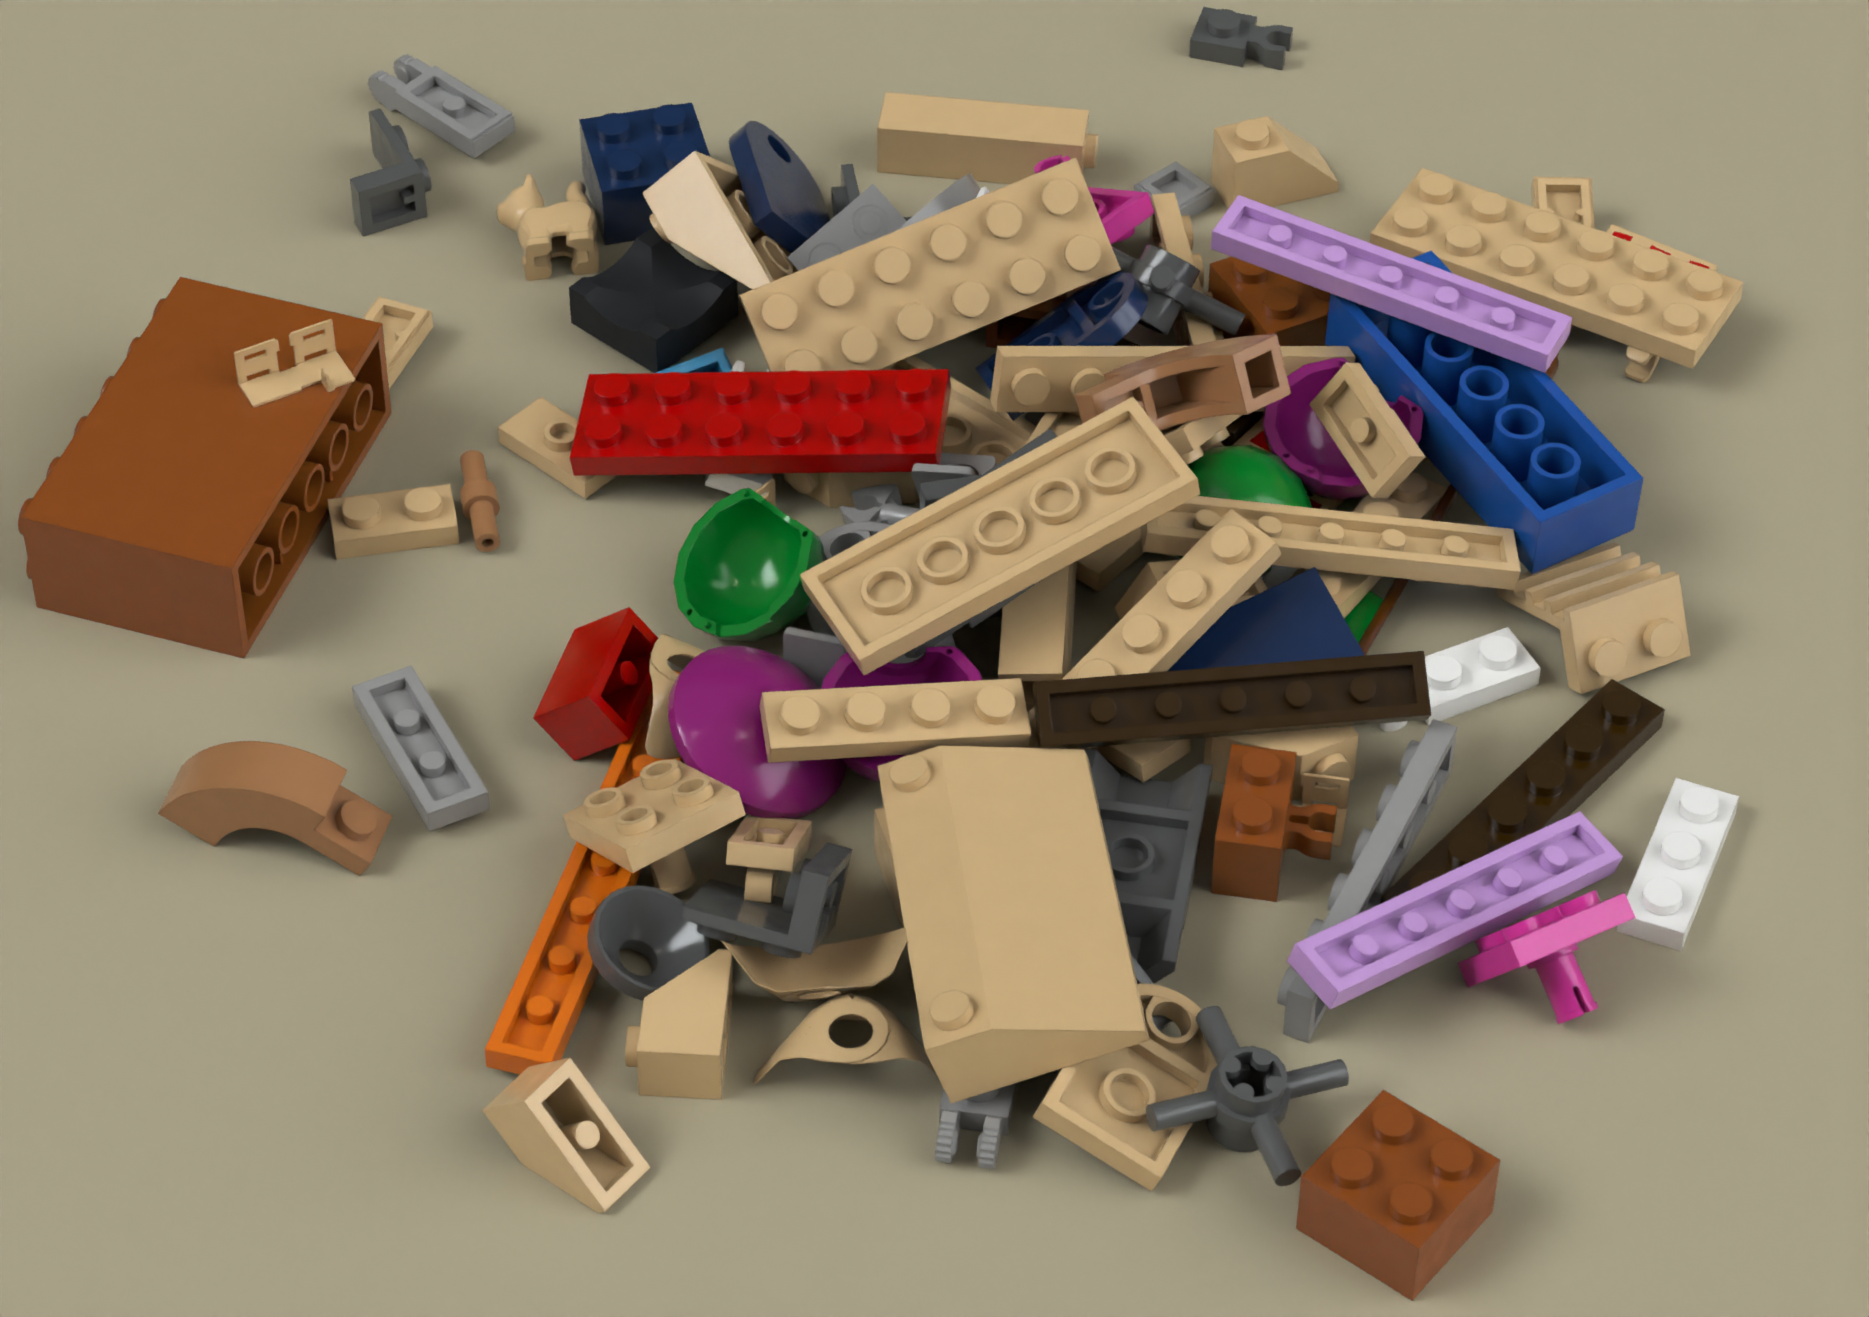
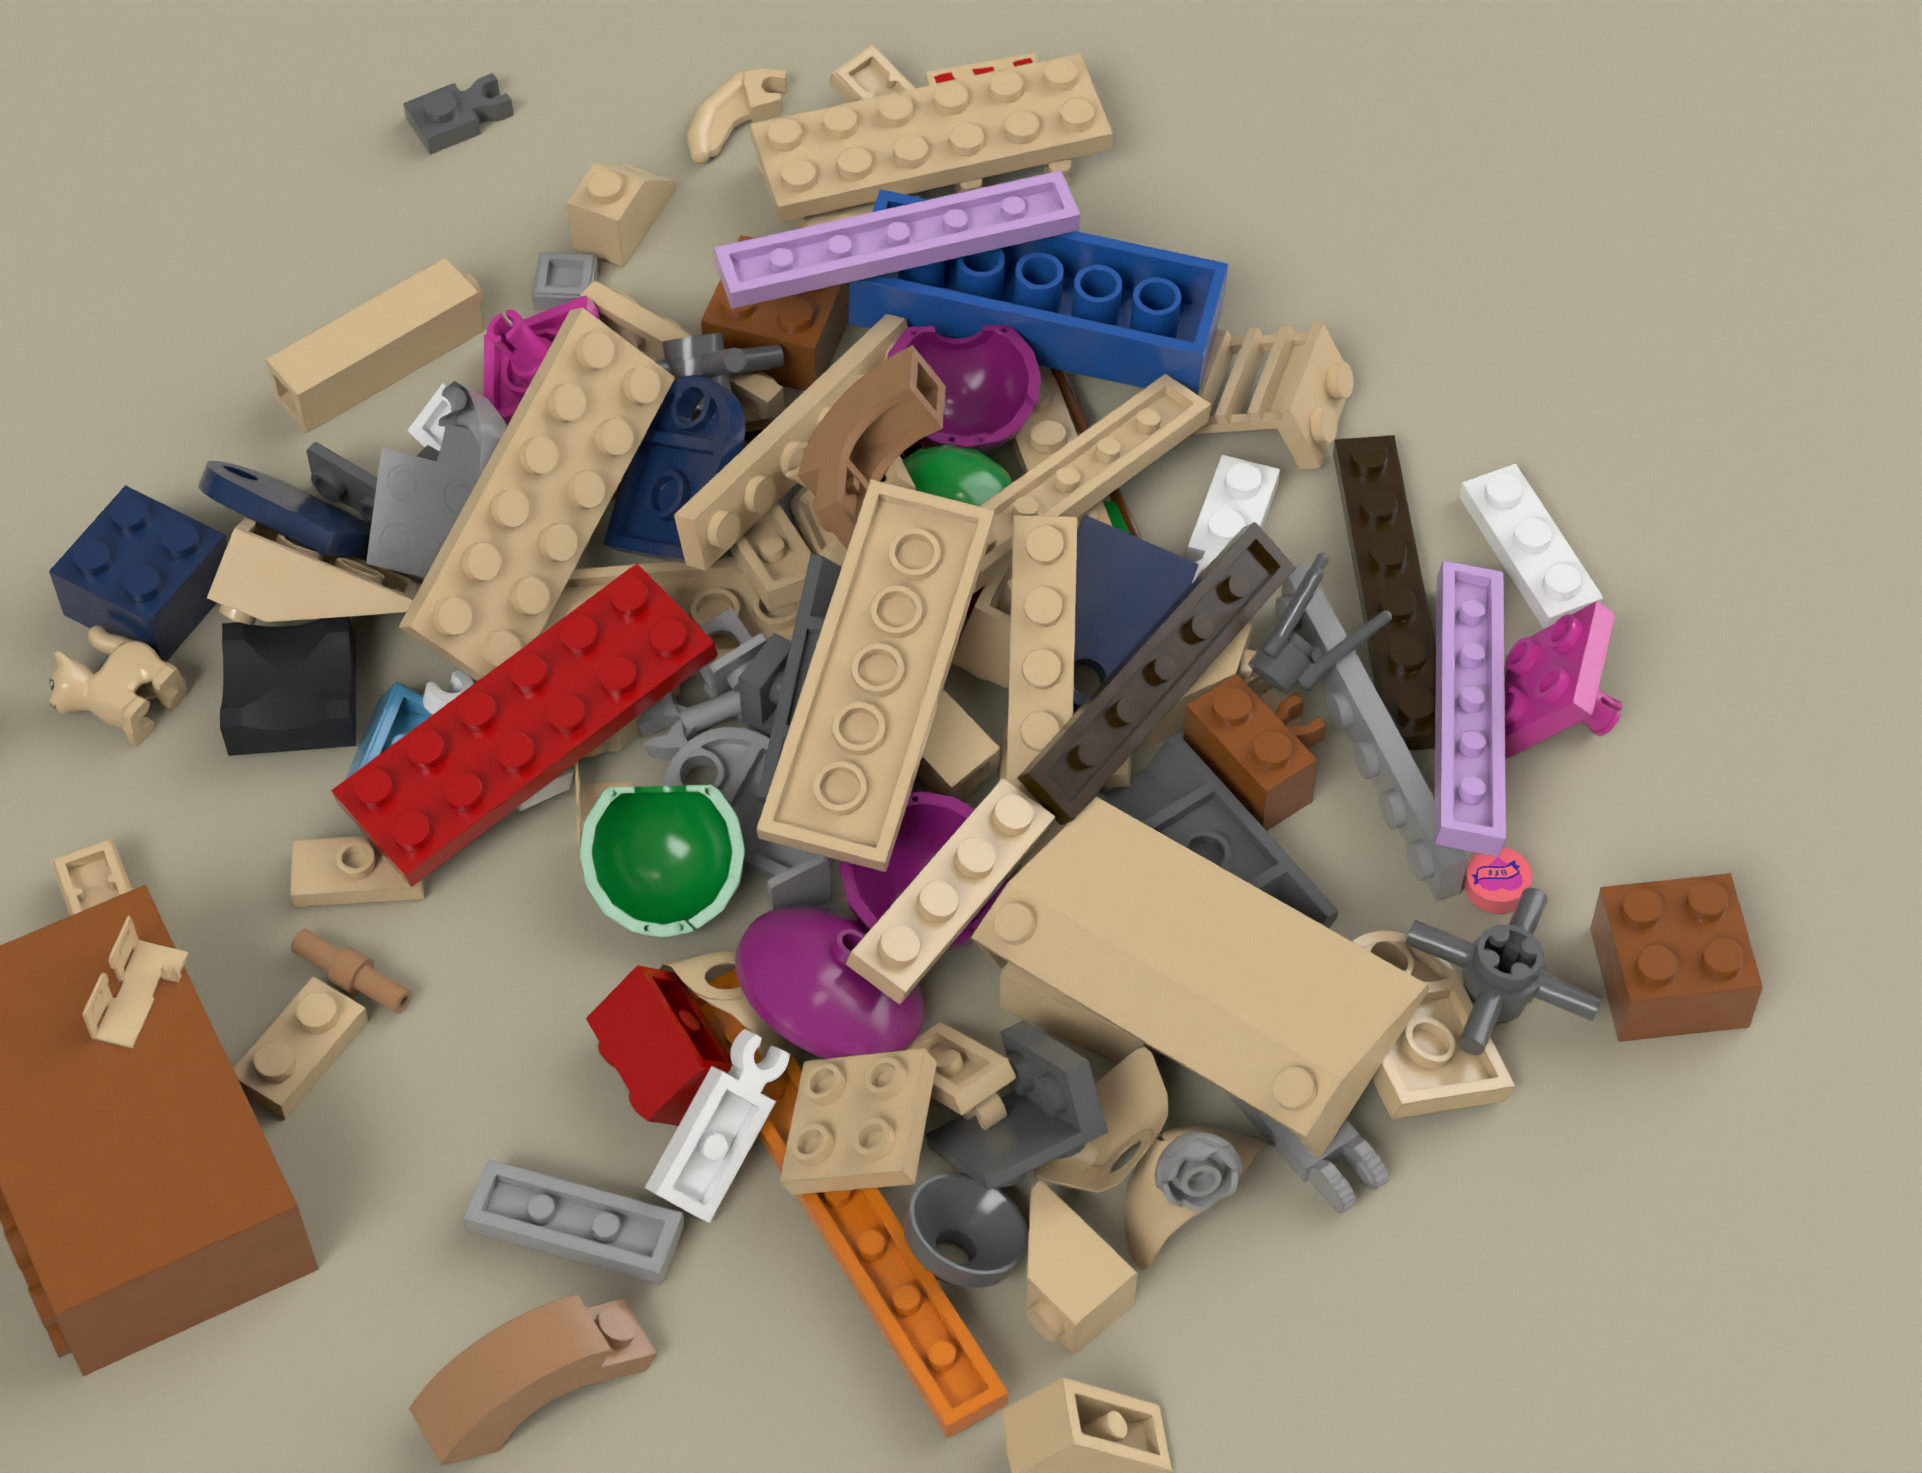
camera: 45 degrees left, 10 degrees up
(563, 757) = (718, 1130): none -> white plate
(833, 1020) = (1197, 1170): none -> light grey plate
(1347, 1041) = (1497, 882): none -> coral tile
(1348, 769) = (1285, 655): none -> dark grey plant
(1367, 430) = (1008, 374): tan plate -> none
(1461, 160) = (737, 100): none -> tan piece

